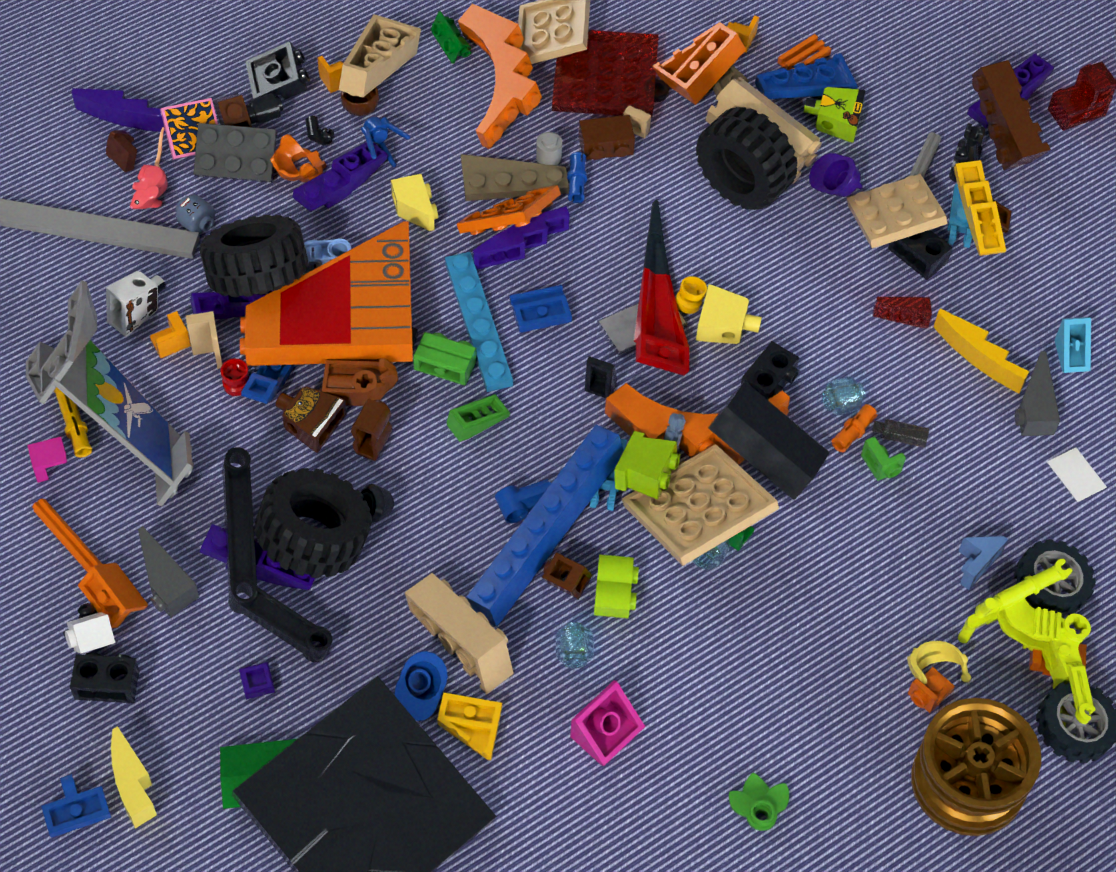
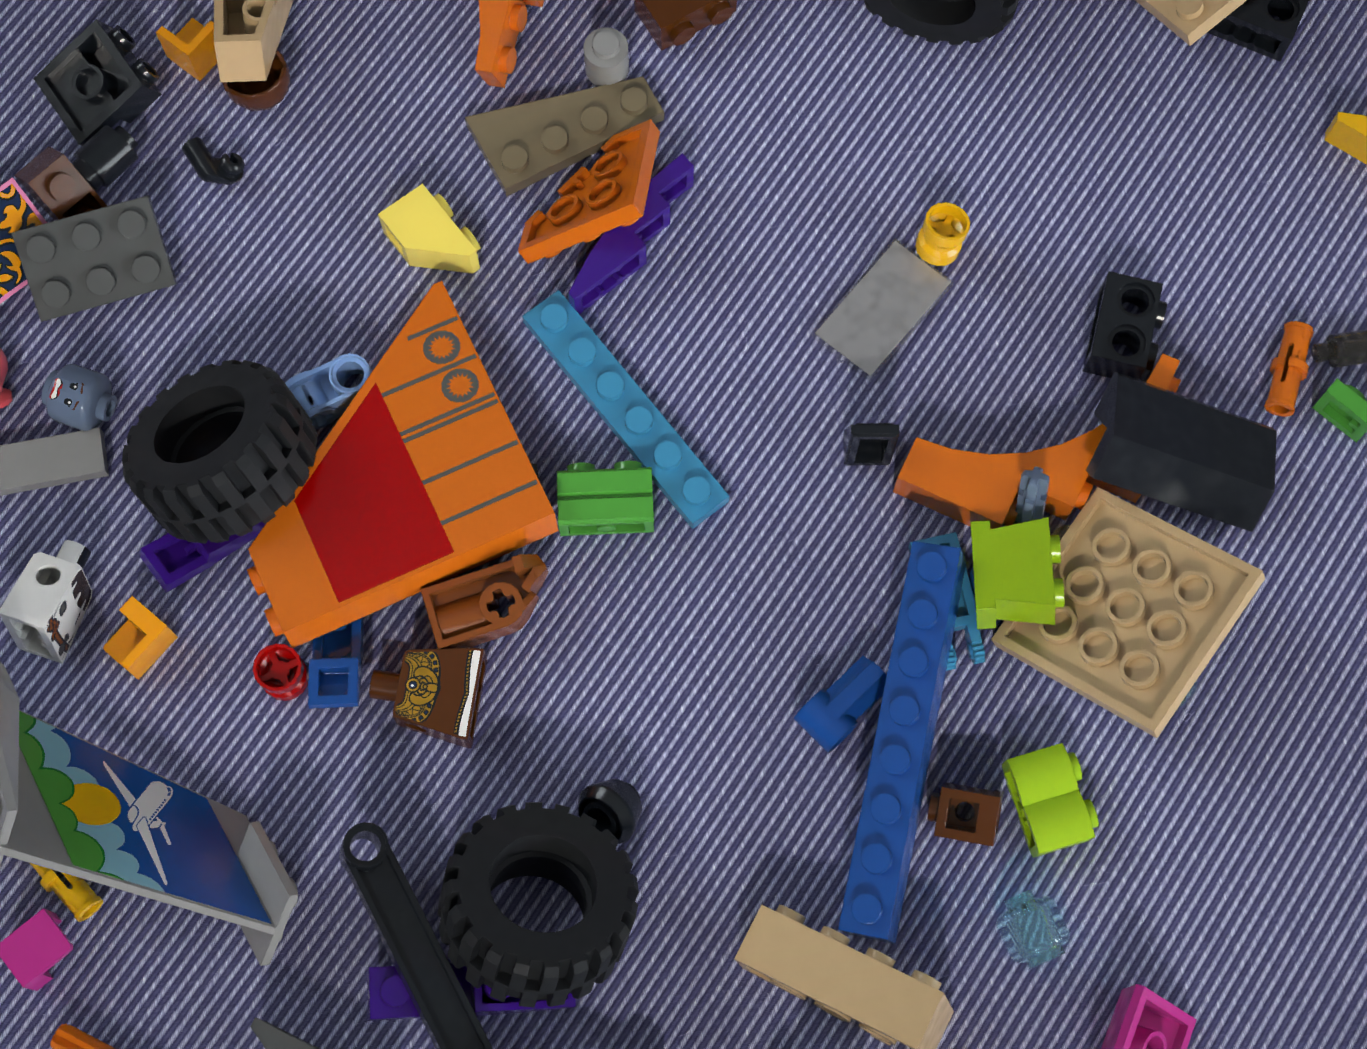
camera: 20 degrees left, 15 degrees up
(204, 335) = (197, 620): tan panel -> none
(291, 151) = (185, 248): orange helmet -> none
(342, 179) = (291, 238): dark purple slope -> none
(371, 429) = (550, 683): reddish brown brick -> none
(376, 131) = (310, 129): blue plant -> none
(464, 428) = (682, 606): bright green slope -> none
(540, 308) = (716, 349): blue plate -> none
(577, 177) = (669, 88): blue pin -> none
(658, 326) = (921, 314): red plate -> none
(725, 317) = (1011, 252): light yellow torso -> none
(843, 395) = (1249, 319): clear light blue head -> none
(904, 310) = (1286, 130): clear red slope -> none

